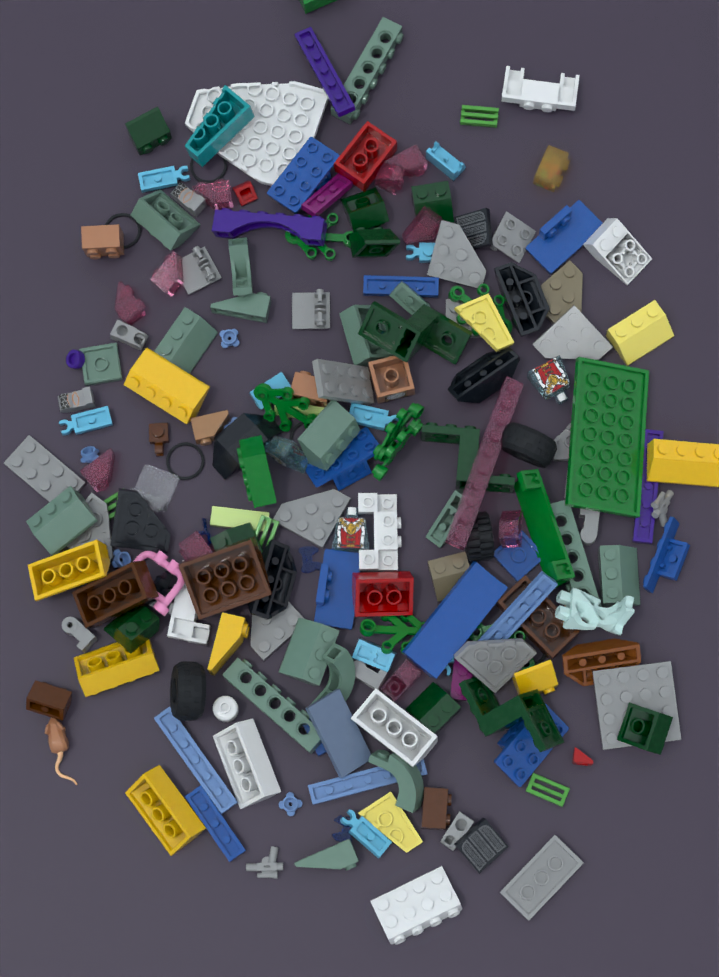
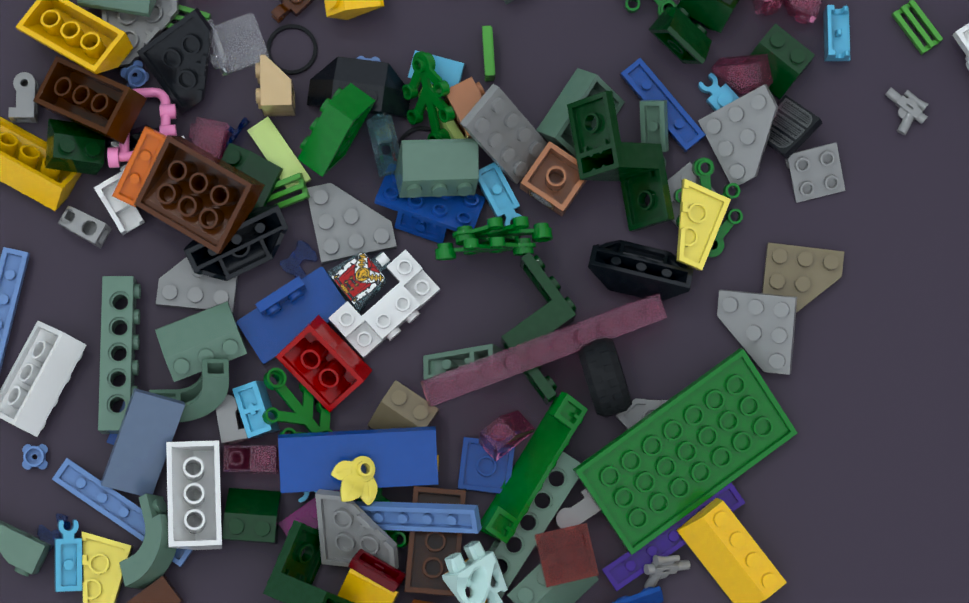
camera: 40 degrees right, 5 degrees up
(179, 597) = (139, 165): none -> orange tile
(187, 655) = (85, 226): none -> light grey leg
(188, 690) = (55, 257): black tyre -> none
(202, 486) = (276, 89): none -> tan slope
(209, 426) = (345, 41): medium nougat slope -> none
(225, 709) = (73, 309): white head -> none
(229, 637) = (145, 249): yellow slope -> none
(286, 354) = (488, 53): none -> bright green tile
(311, 310) = (557, 37): light grey hinge -> none
(468, 629) = (354, 482): none -> light yellow plate
(480, 542) = (462, 414): black tyre -> none
(521, 158) = (909, 109): none -> light grey piece
(522, 297) = (759, 238): black wedge -> none
(528, 661) = (377, 570): none -> dark red tile
(550, 380) = (698, 341): torso -> none
(551, 168) = (926, 148): clear yellow brick -> none
(563, 236) = (865, 224): blue bracket -> none
(611, 548) = (566, 555): none -> clear red brick
(617, 250) = (898, 292): white slope -> none
(640, 333) = (829, 390): light yellow slope -> none

